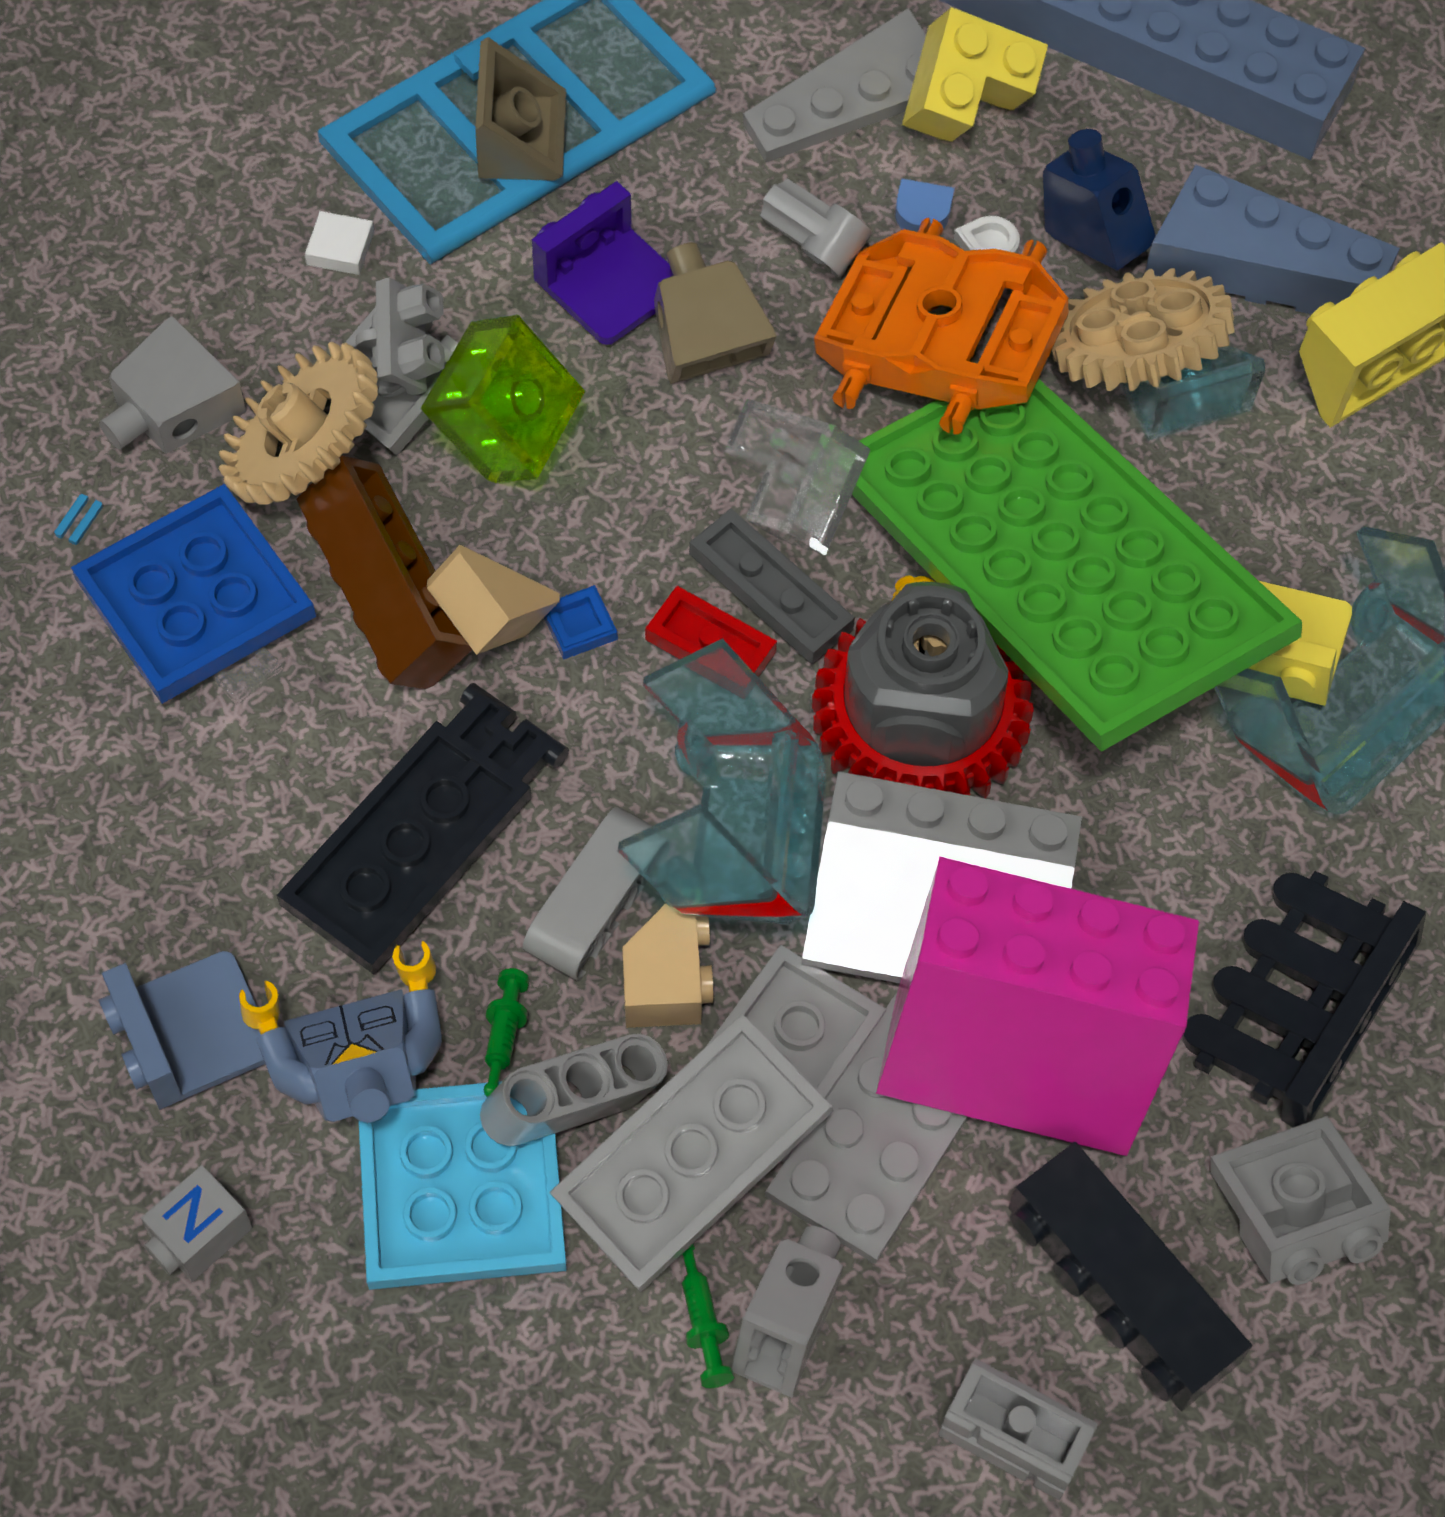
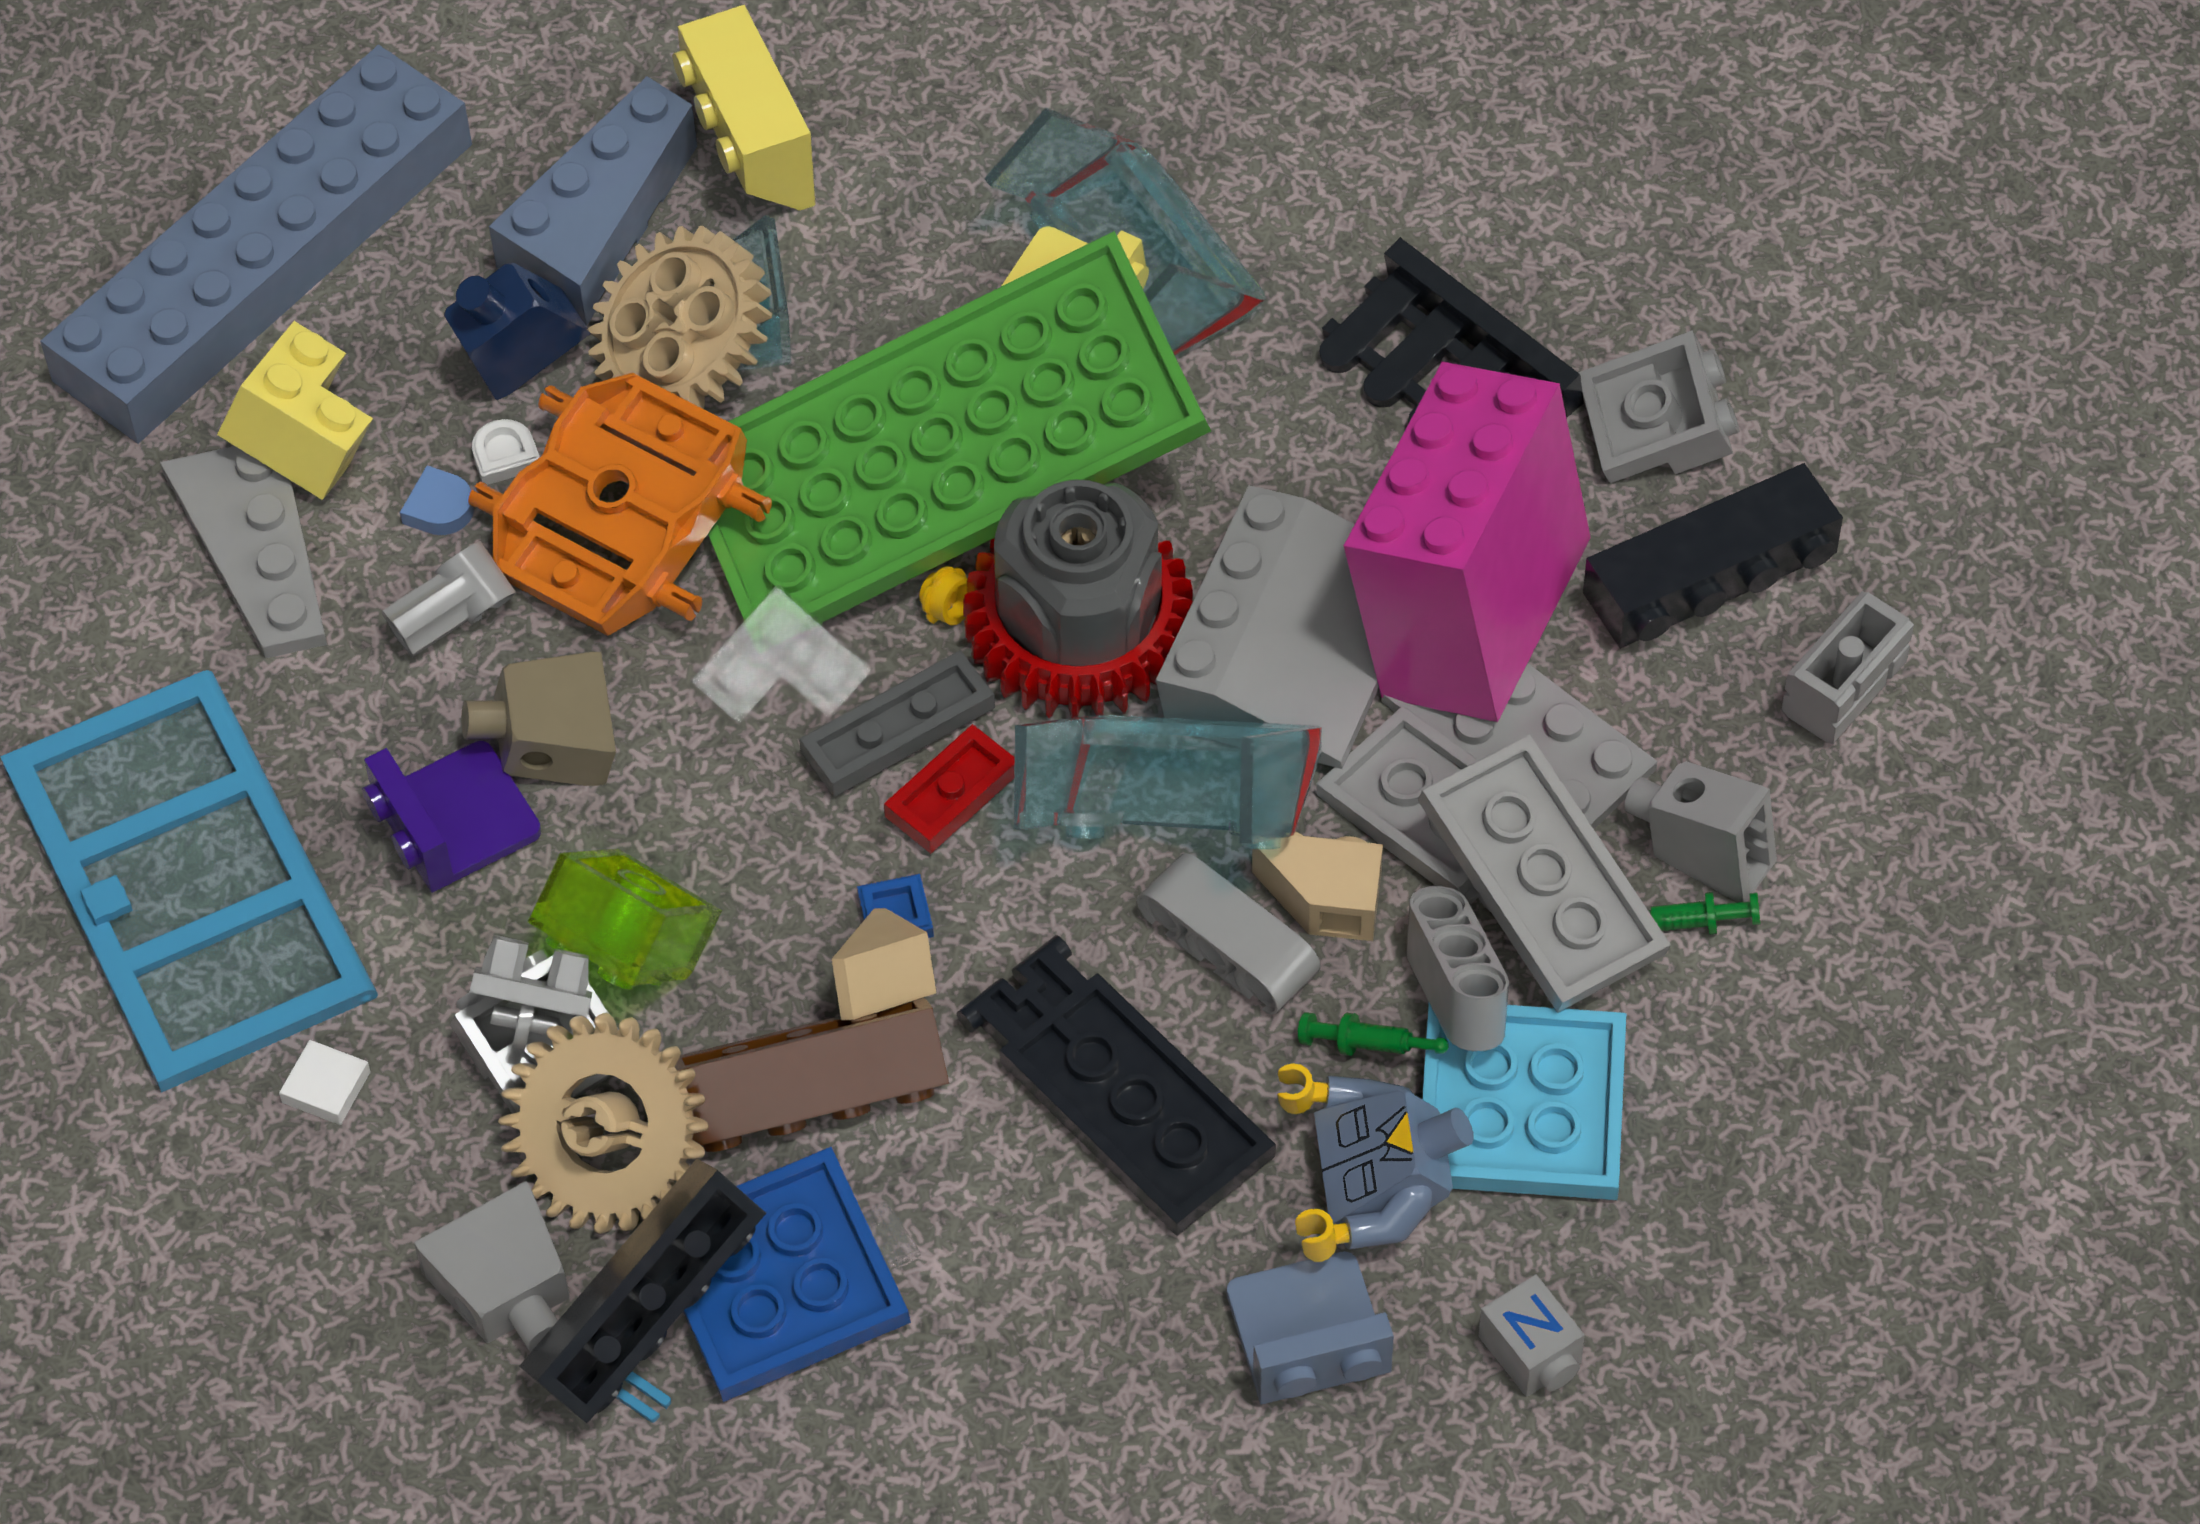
camera: 75 degrees left, 5 degrees down
(136, 480) = (643, 1290): none -> black brick
(517, 118) = (222, 866): dark tan slope -> none

